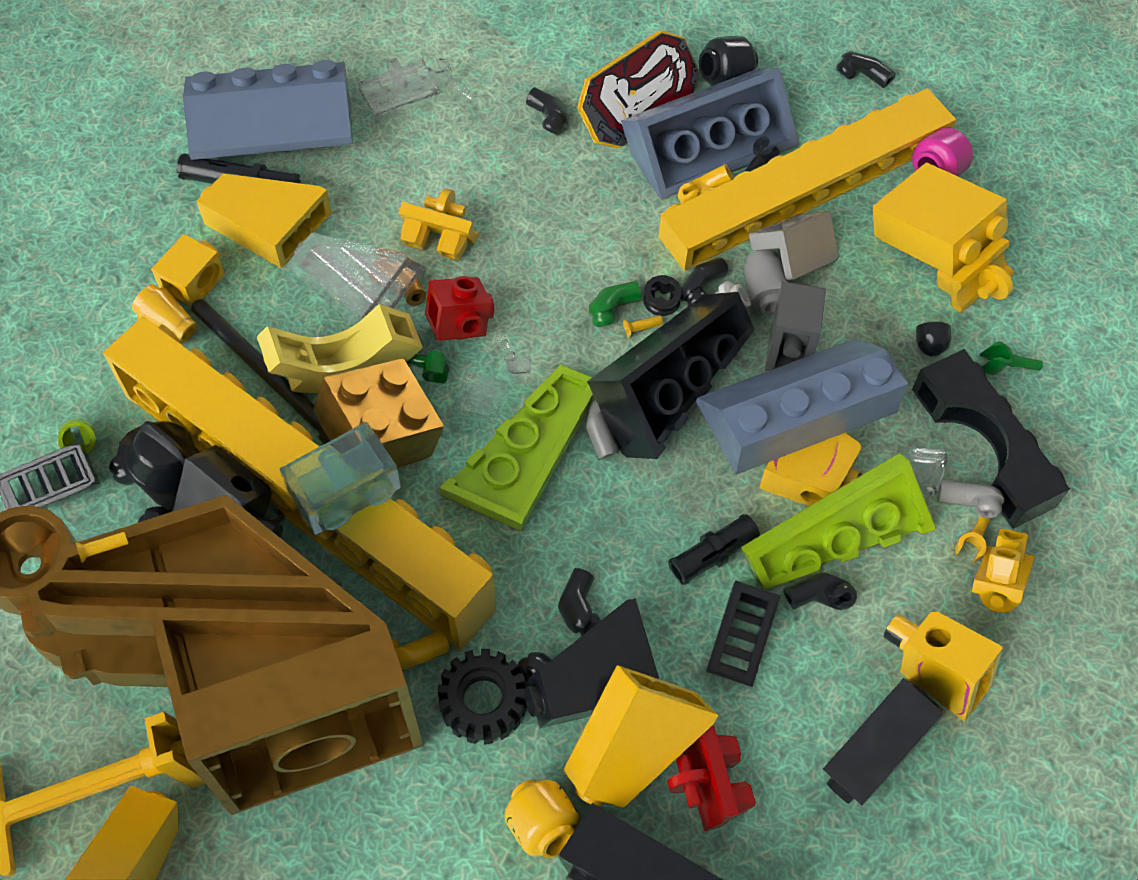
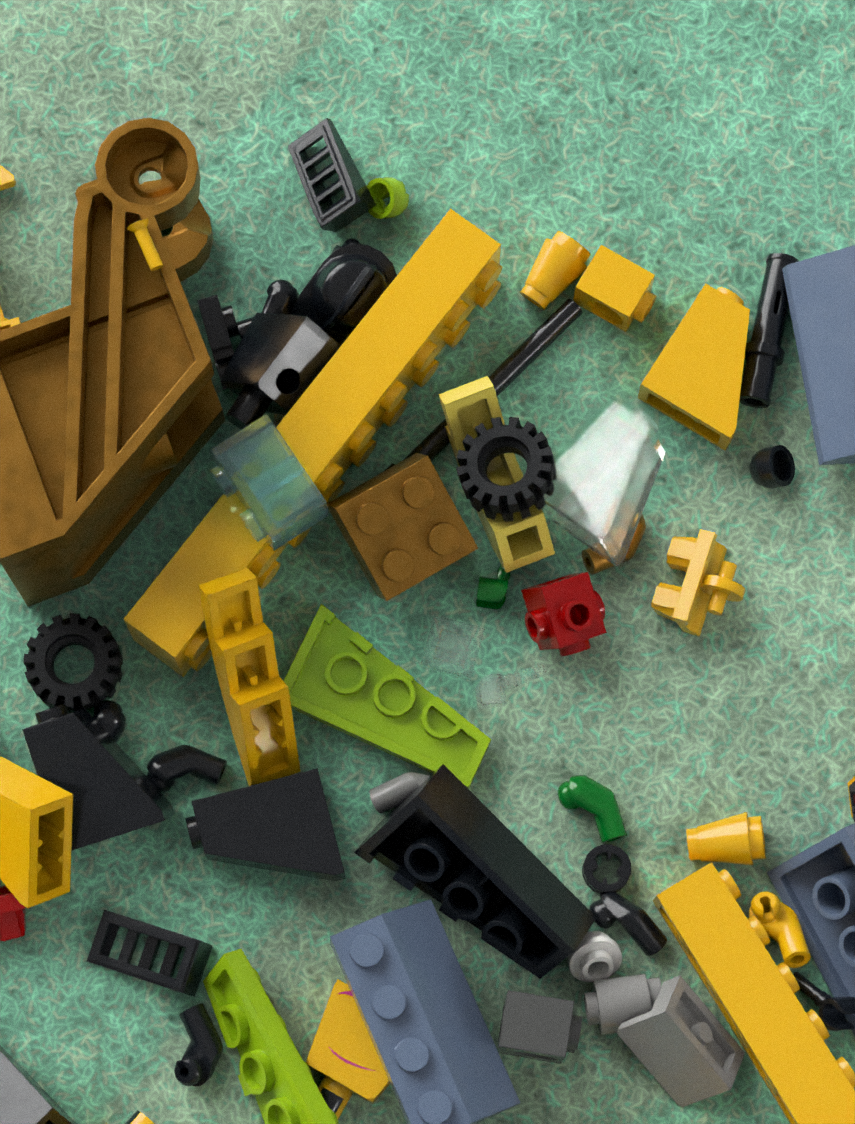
camera: 90 degrees right, 15 degrees up
(328, 304) = (501, 440): none -> black tyre
(349, 179) = (772, 467): none -> black hinge
(421, 650) = (119, 573): yellow arm -> none
(513, 529) = (249, 677): none -> yellow slope
(632, 527) = (270, 827): none -> black slope
(639, 214) = (728, 840): none -> yellow cone
(643, 324) = (565, 845): yellow piece -> none
(713, 549) = (251, 923): black pin -> none

